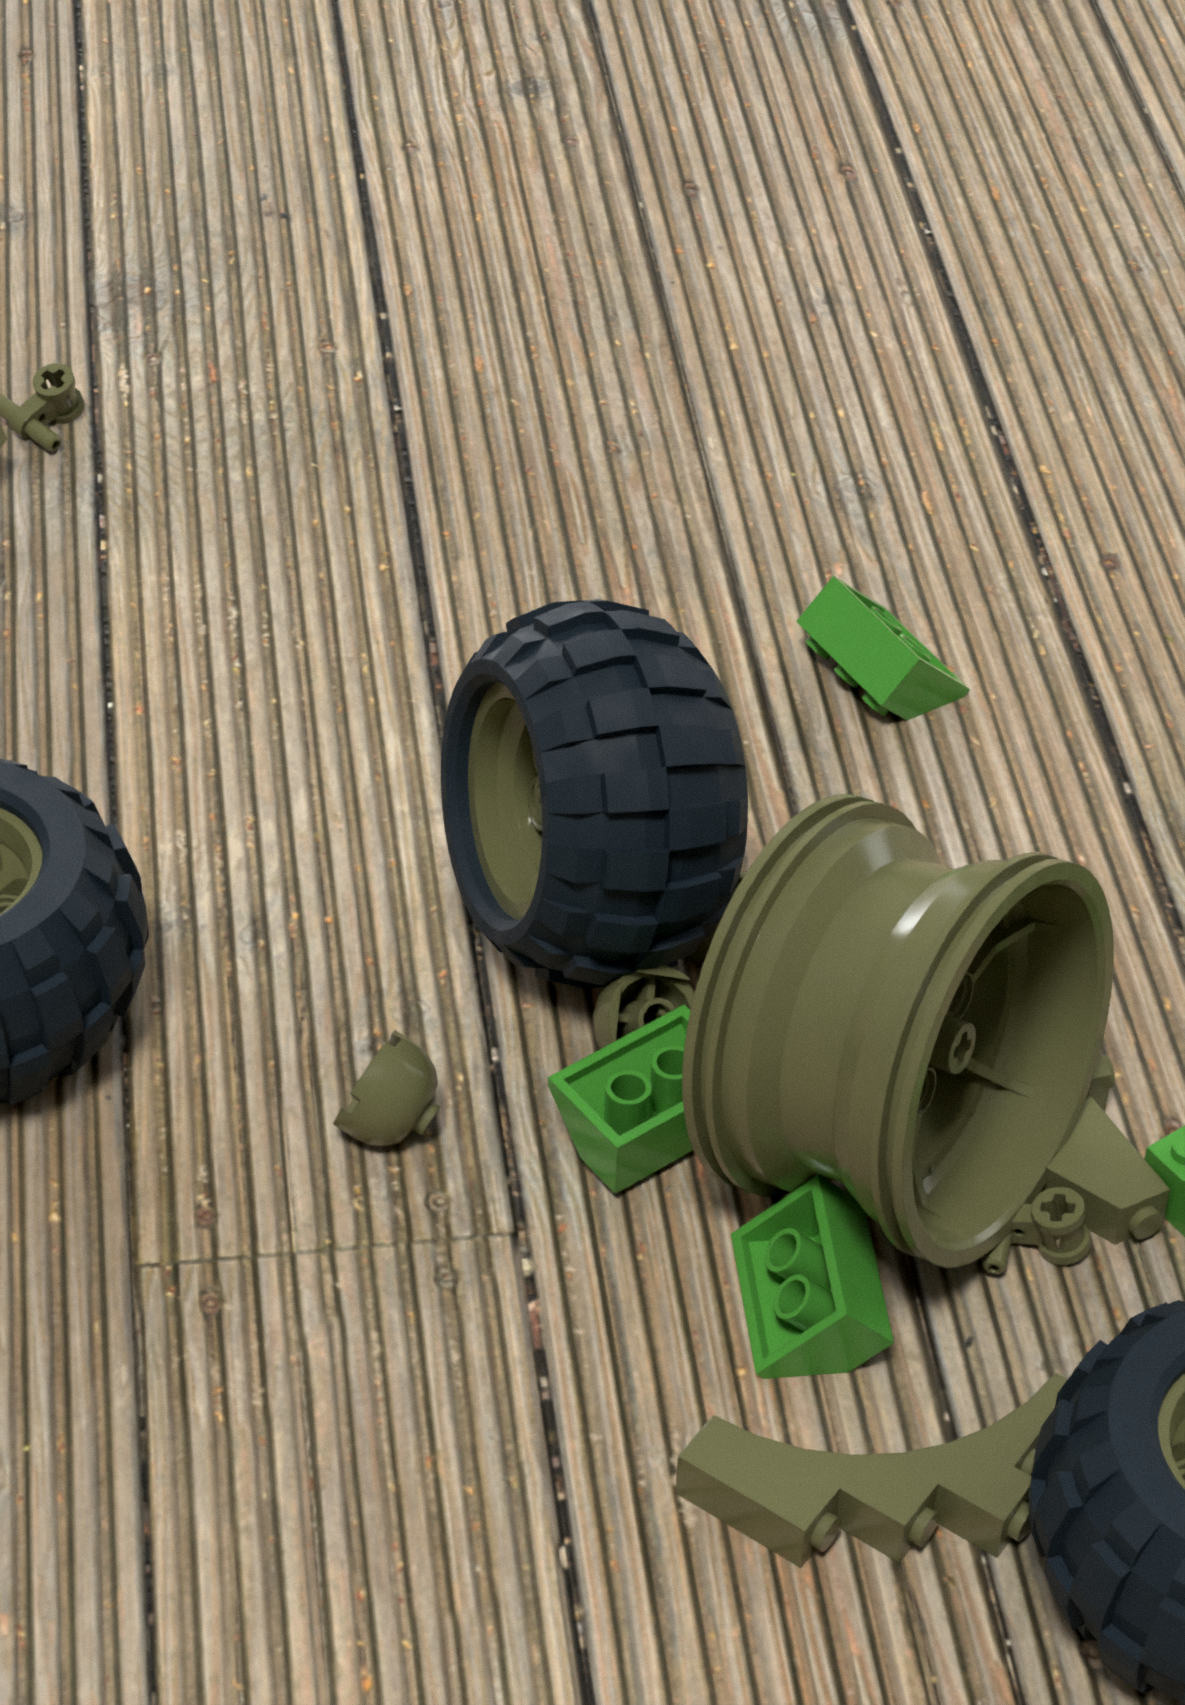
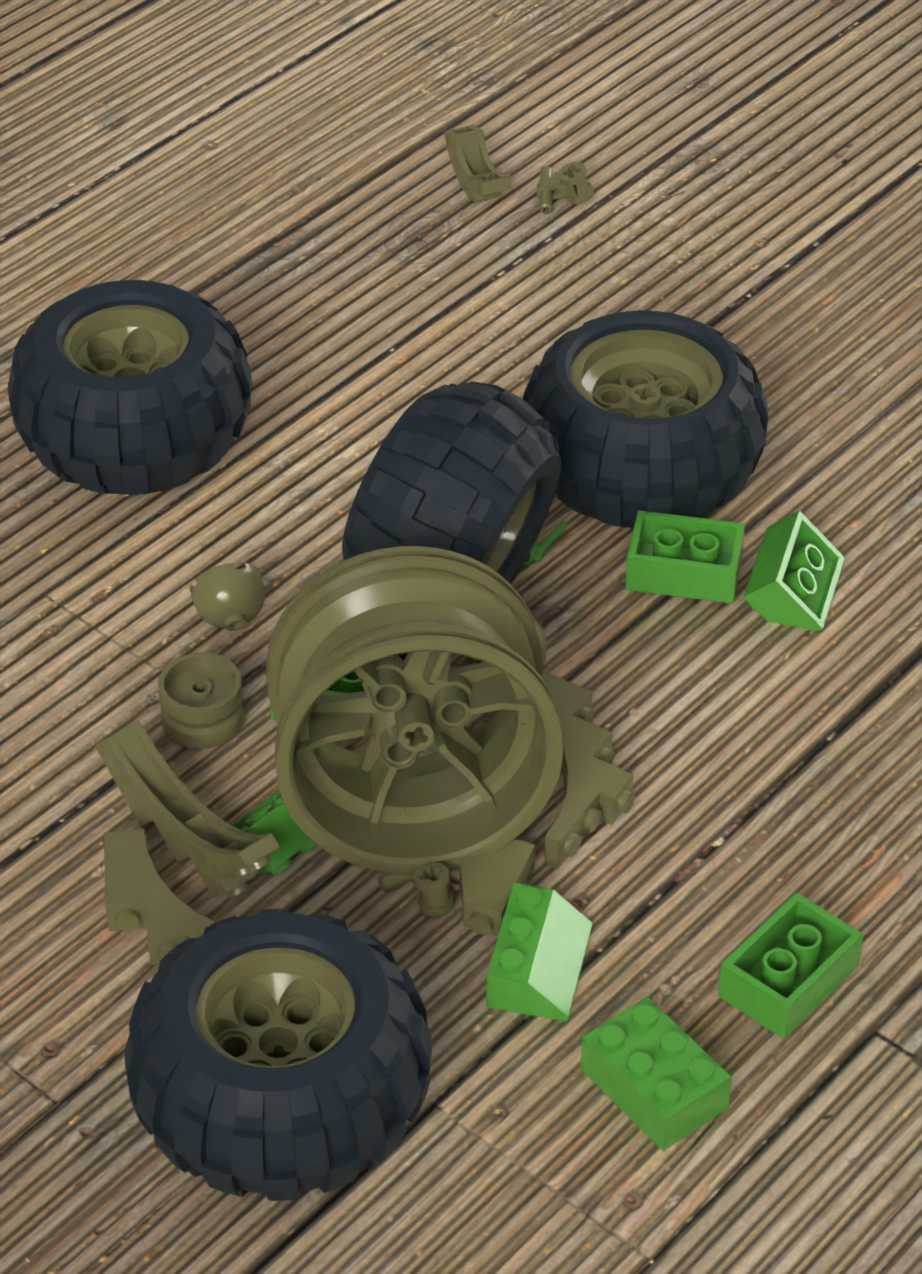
camera: 50 degrees right, 0 degrees up
(539, 1228) = (201, 700): none -> olive wheel
(559, 522) = (649, 416): none -> black wheel
(748, 1374) = (156, 794): none -> olive arch
(790, 698) = (685, 556): none -> bright green brick

